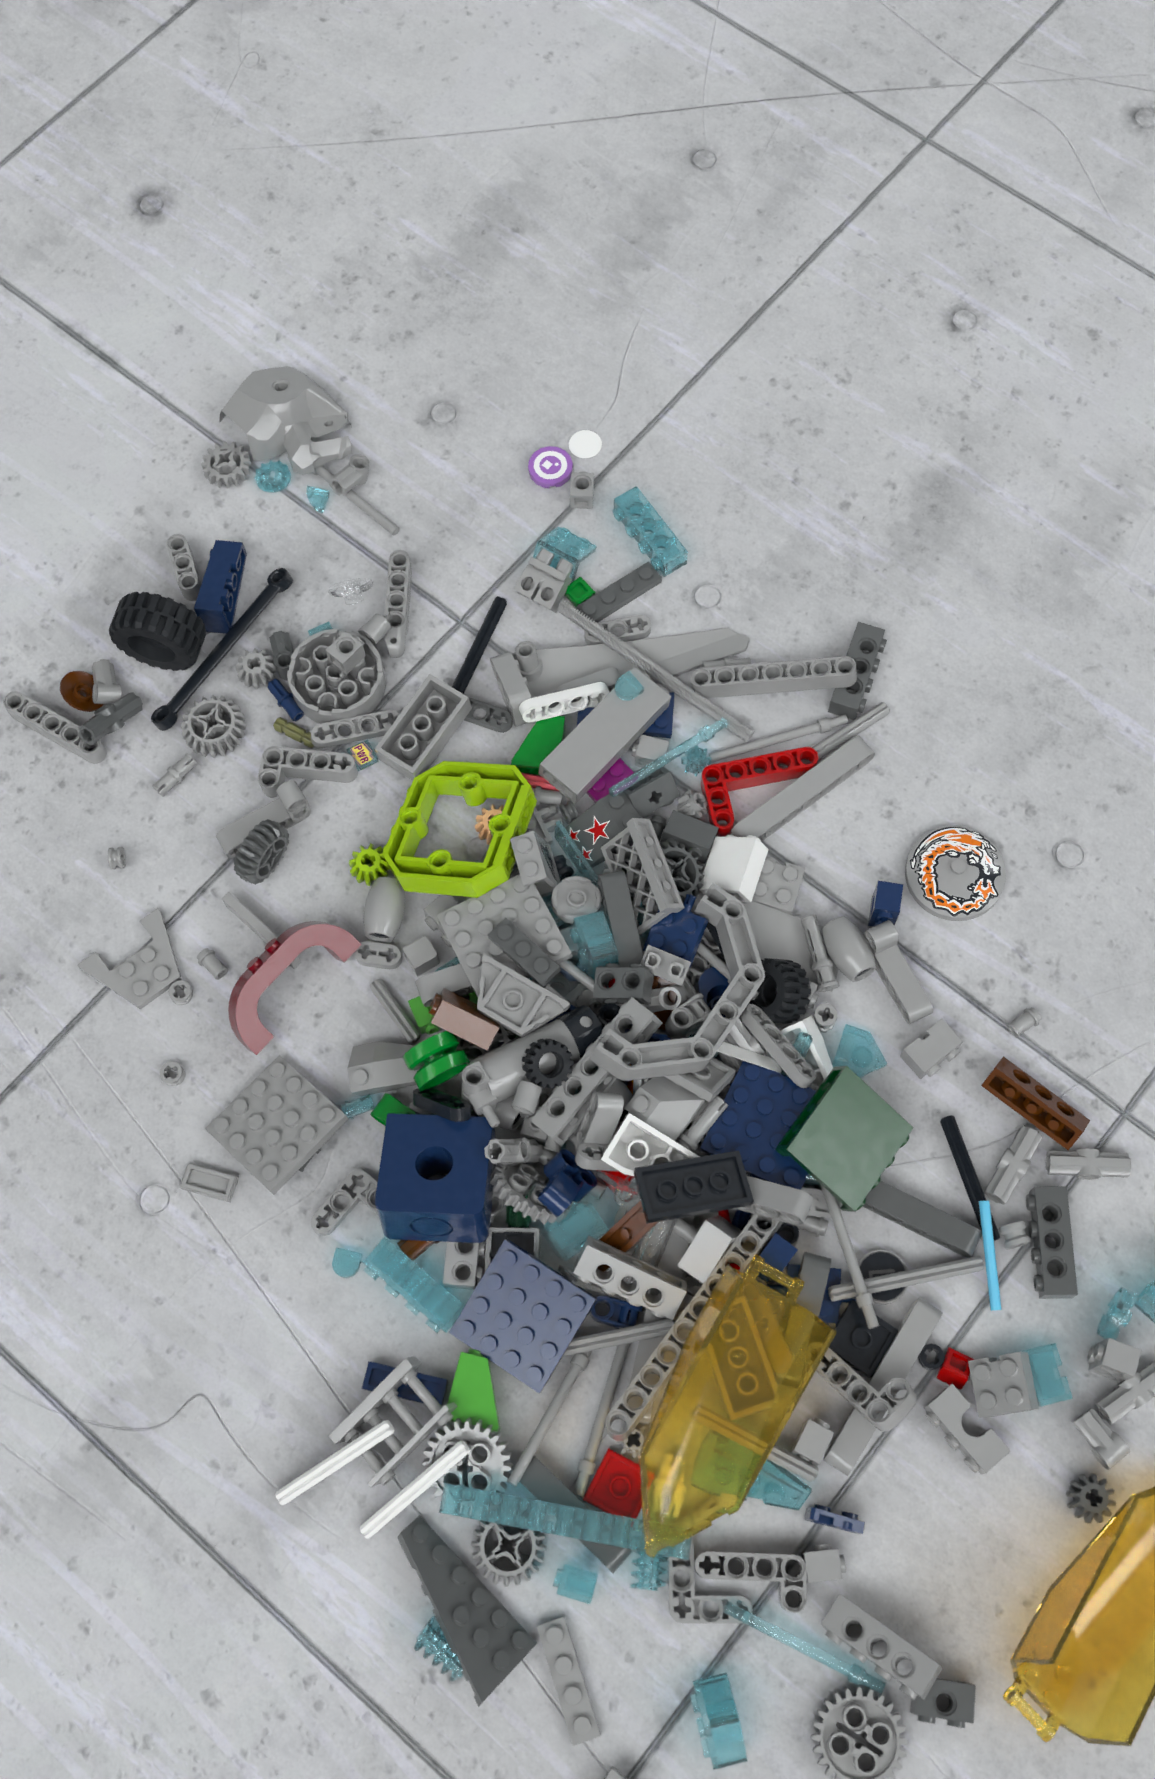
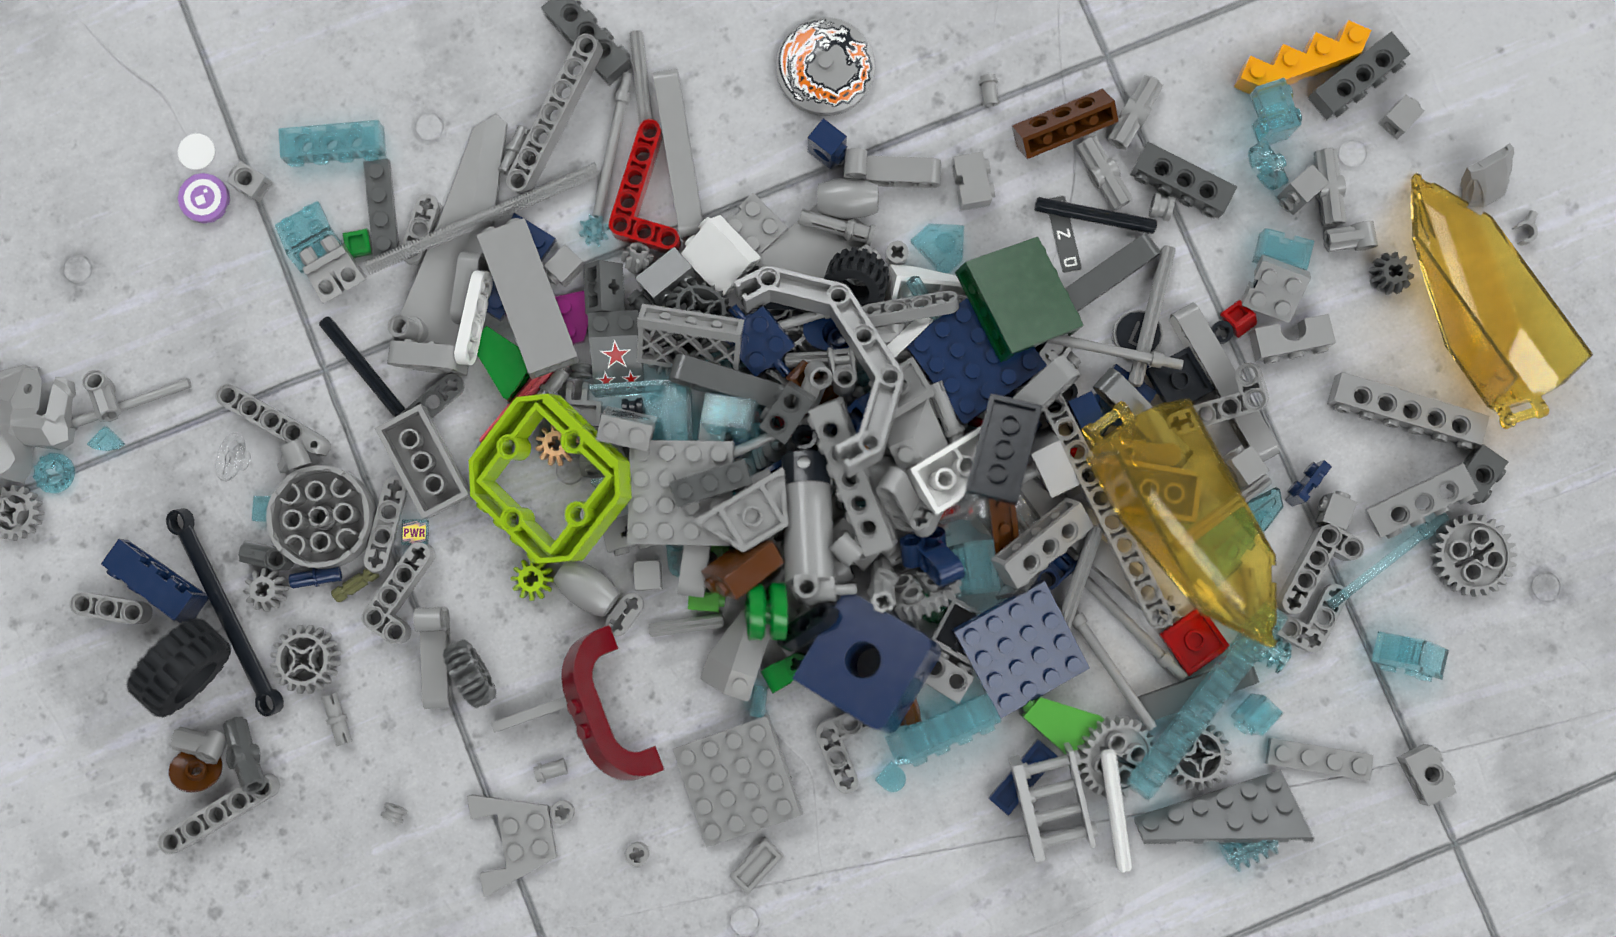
camera: 65 degrees left, 15 degrees up
(334, 1462) = (1059, 867): white axle -> none
(346, 661) = (315, 503): light grey brick -> none
(533, 1058) = (839, 511): black tyre -> none
(575, 898) = (678, 410): light grey tile -> none
(628, 687) = (495, 252): clear light blue tile -> none
(665, 965) = (787, 365): light grey hips -> none
(703, 735) = (575, 208): clear light blue bar -> none
(929, 1164) = (1065, 241): none -> dark grey sticker
(990, 1257) = (1167, 237): medium azure bar -> none
(991, 1663) = (1471, 423): none -> light grey brick

